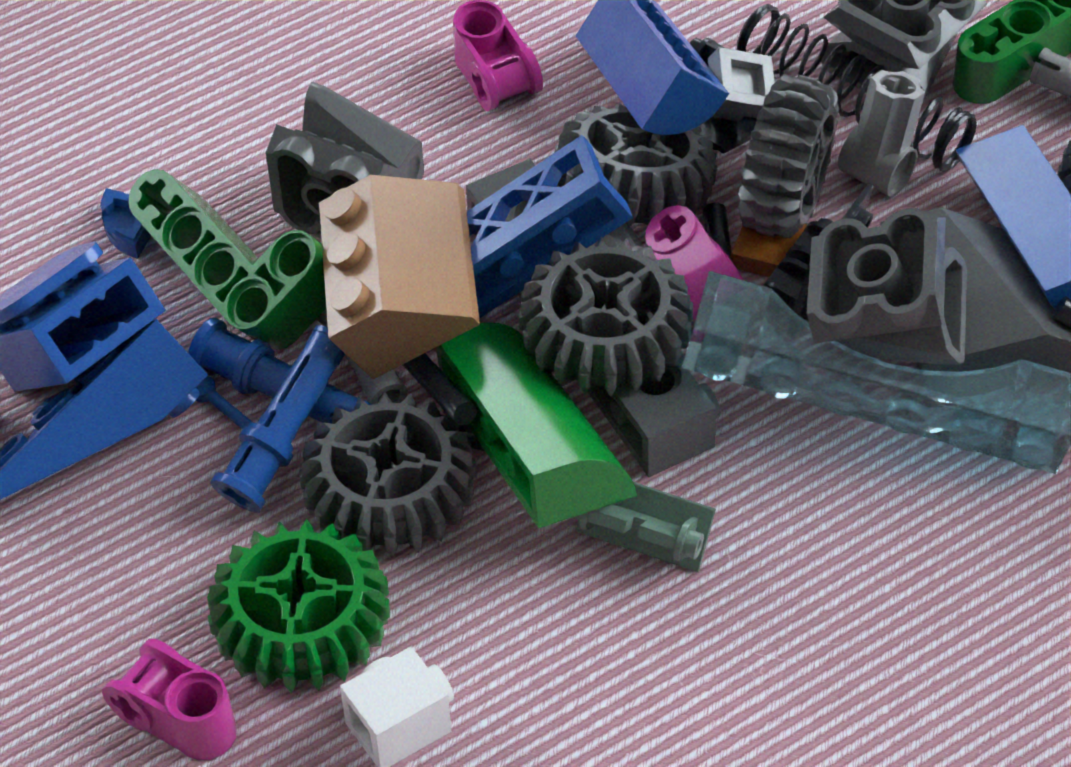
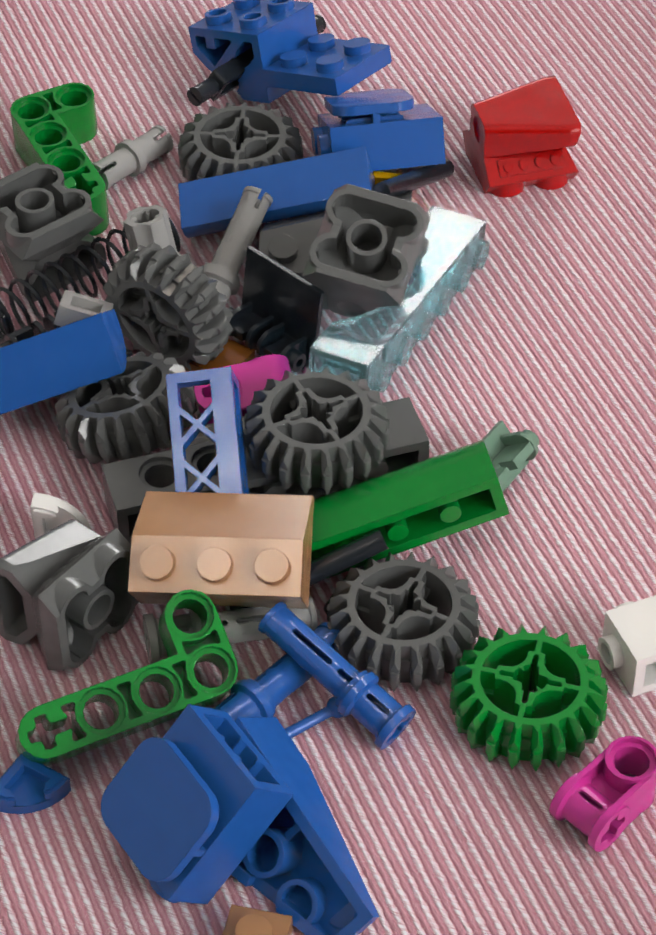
camera: 80 degrees left, 5 degrees down
(466, 150) = (51, 512): none -> white tile
(951, 192) = (236, 239): none -> light grey pin

